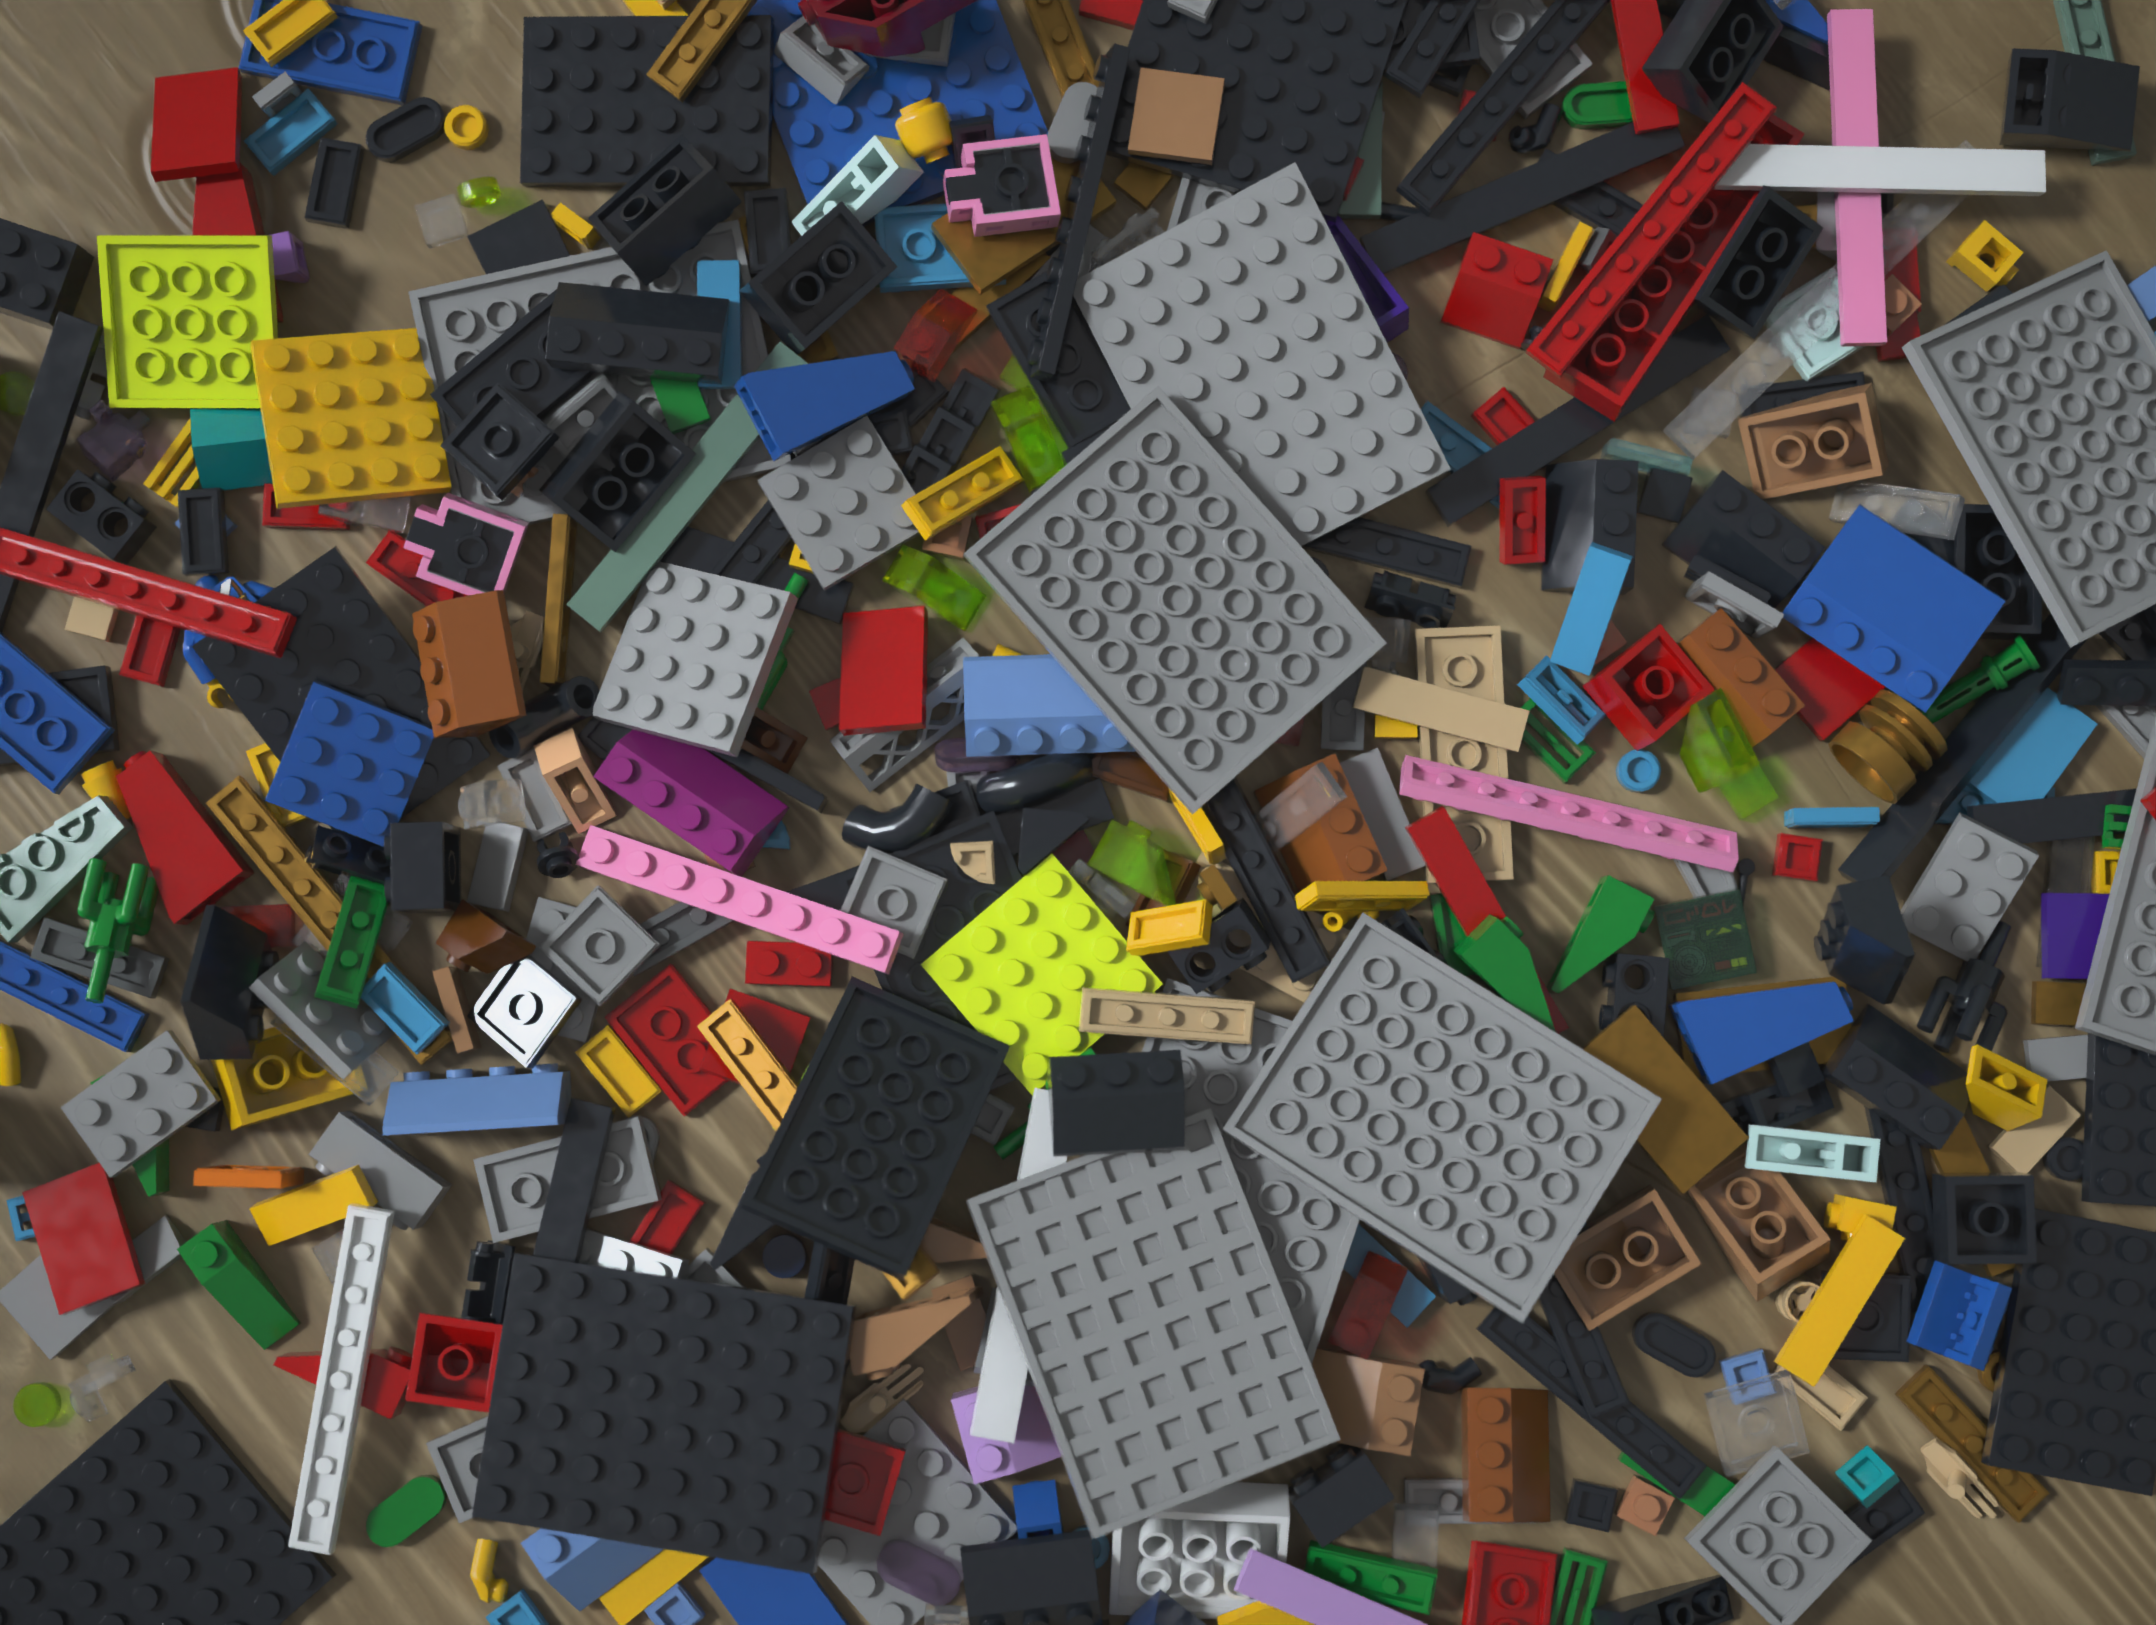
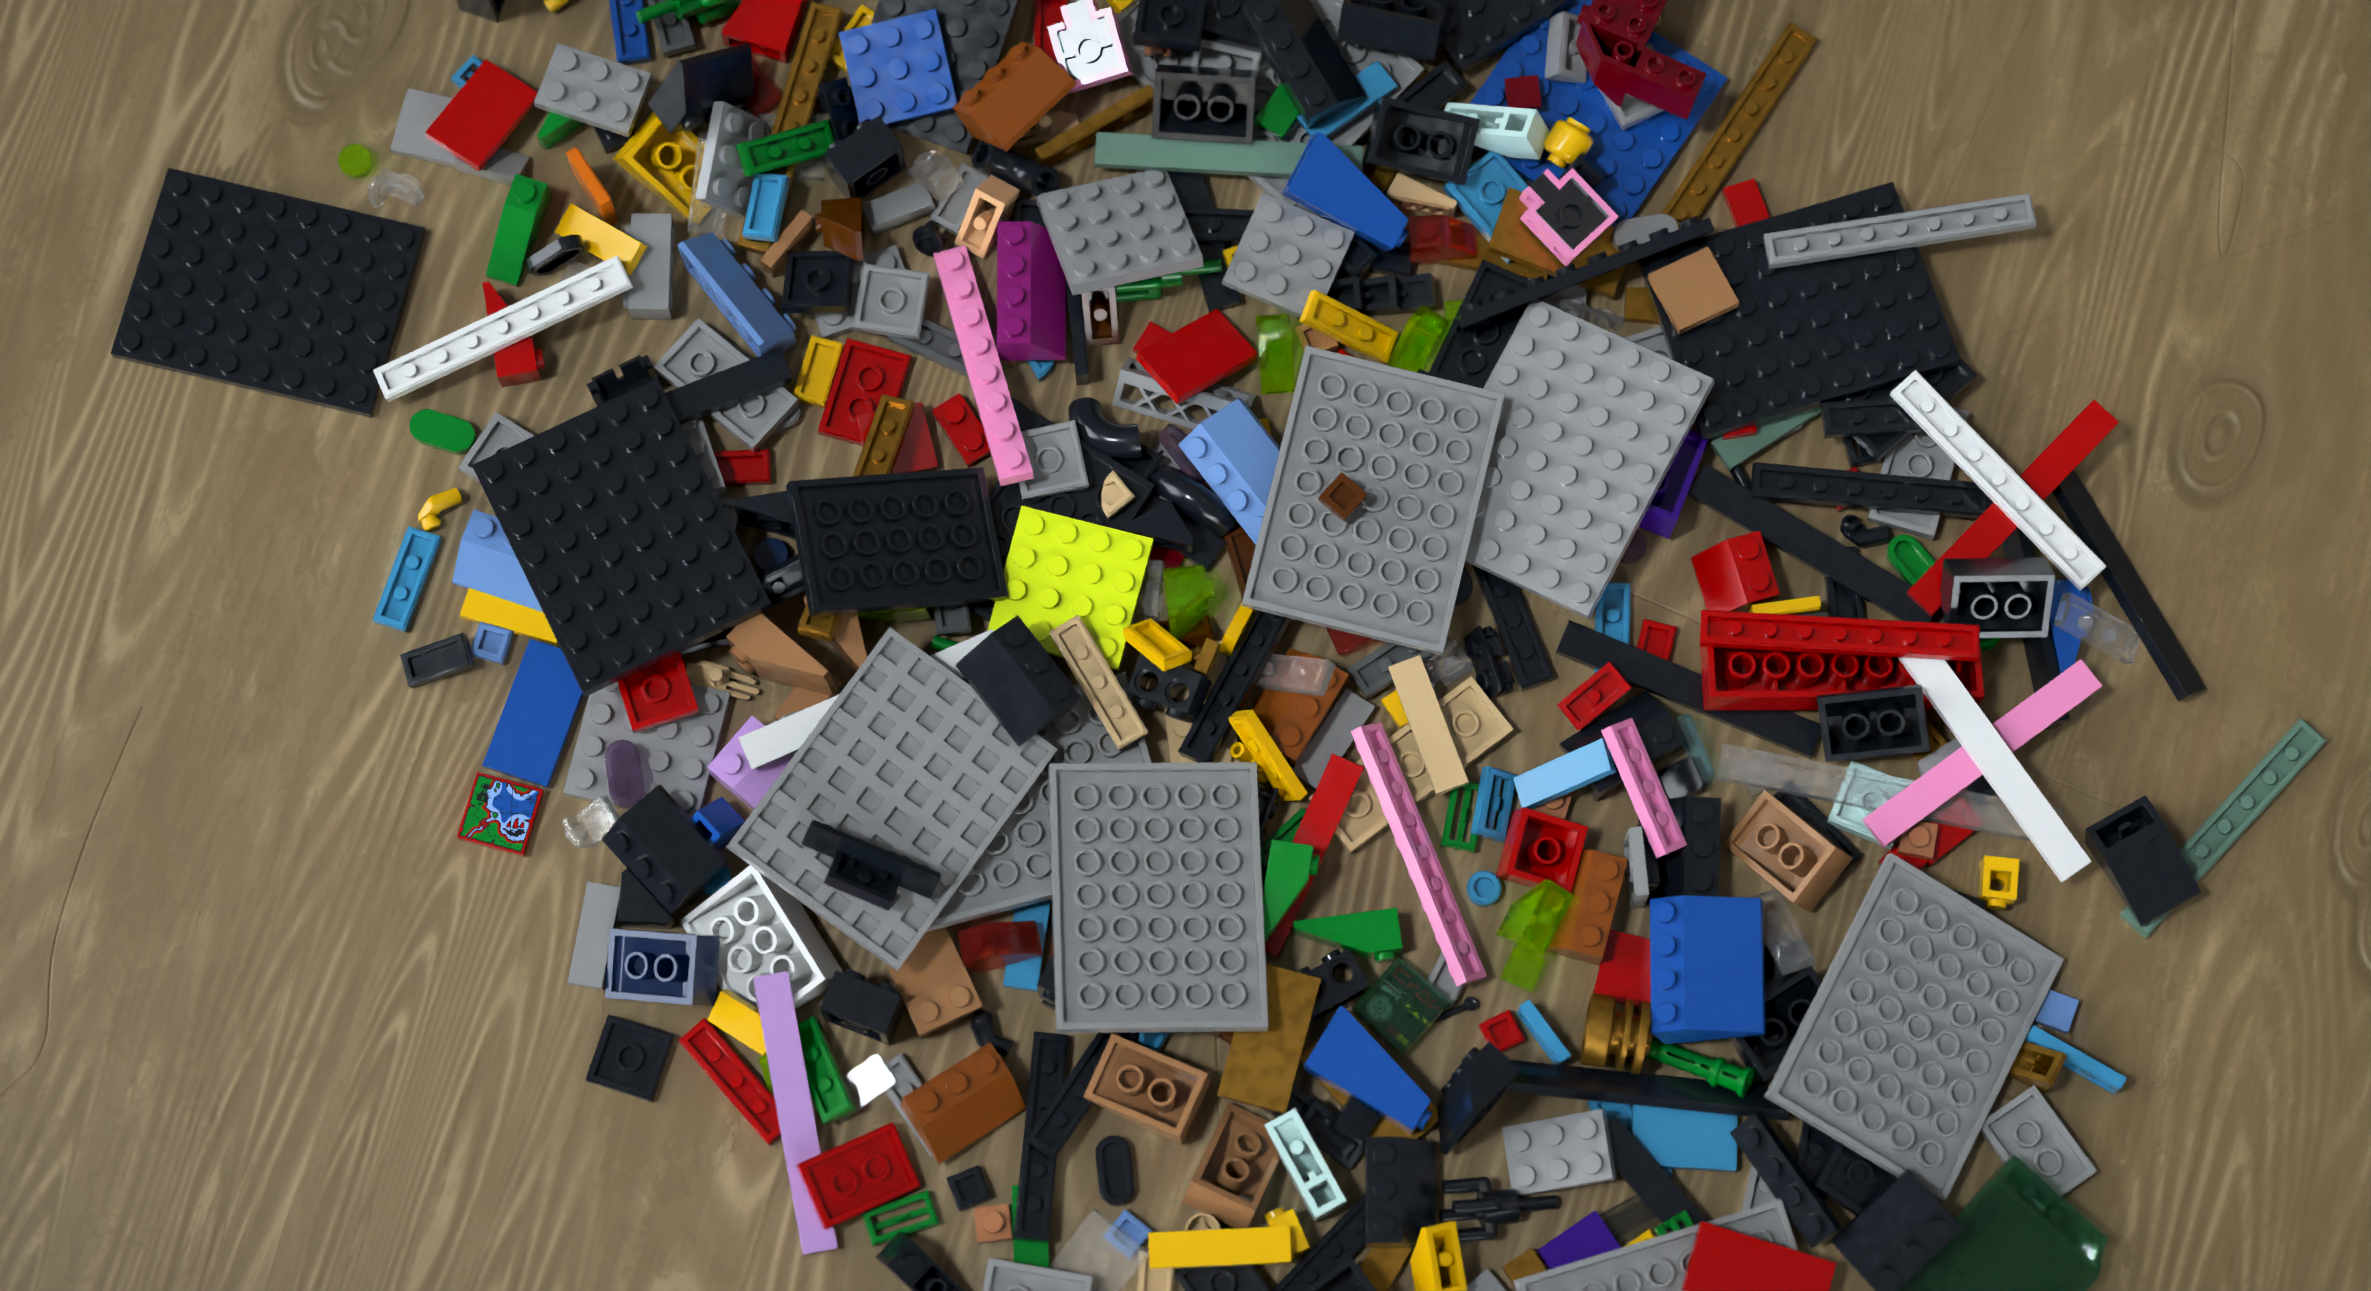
camera: 55 degrees right, 10 degrees down
(297, 1264) = (555, 255): none -> black tile
(454, 1362) = (560, 389): red slope -> none
(837, 138) = (1523, 92): none -> dark red tile
(866, 326) = (1415, 196): none -> tan slope
(1157, 630) = (1342, 497): none -> reddish brown plate
(1219, 1409) = (866, 868): none -> black bracket
(1667, 539) = (1644, 787): none -> bright pink plate

